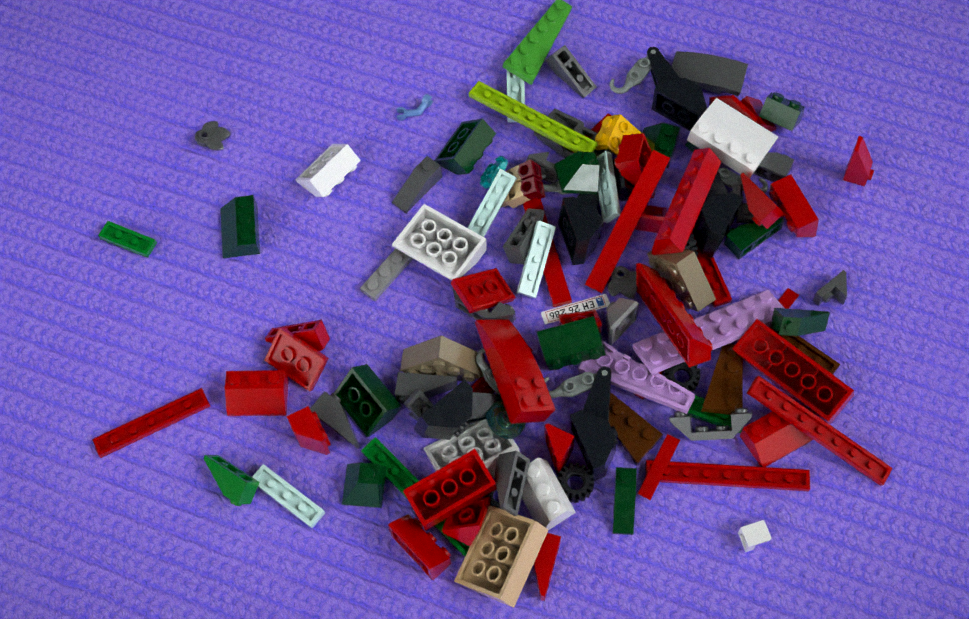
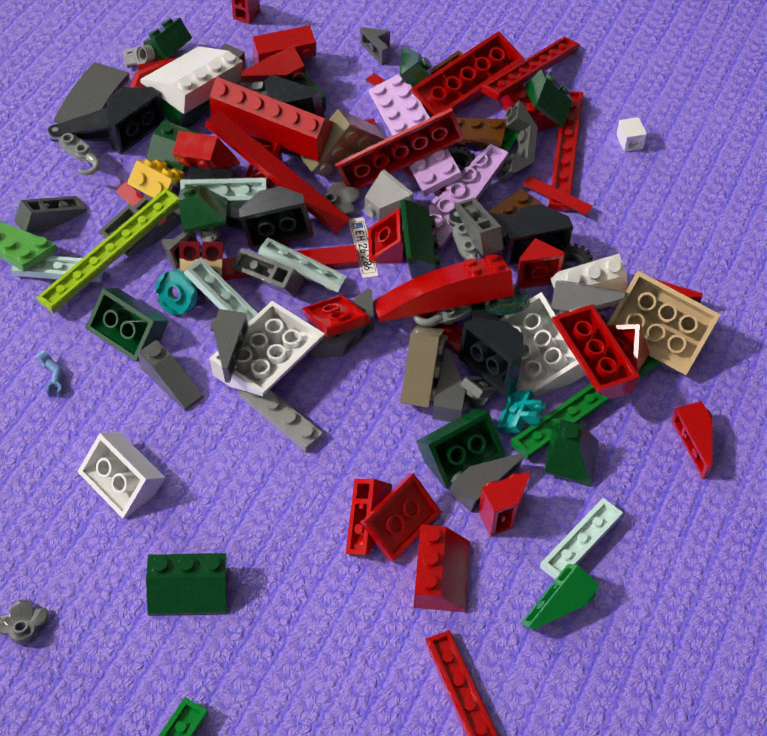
camera: 90 degrees left, 10 degrees down
(395, 590) = (694, 428): none -> red slope
(403, 439) = (517, 412): none -> teal hinge
(420, 545) = (648, 402): red slope -> none
(435, 210) = (229, 334): none -> dark grey slope
(584, 388) = (480, 226): none -> dark grey slope
(624, 500) = (594, 225): dark green slope -> none
(762, 94) = (137, 55): none -> light grey piece
(774, 448) = (549, 97): none -> dark green slope

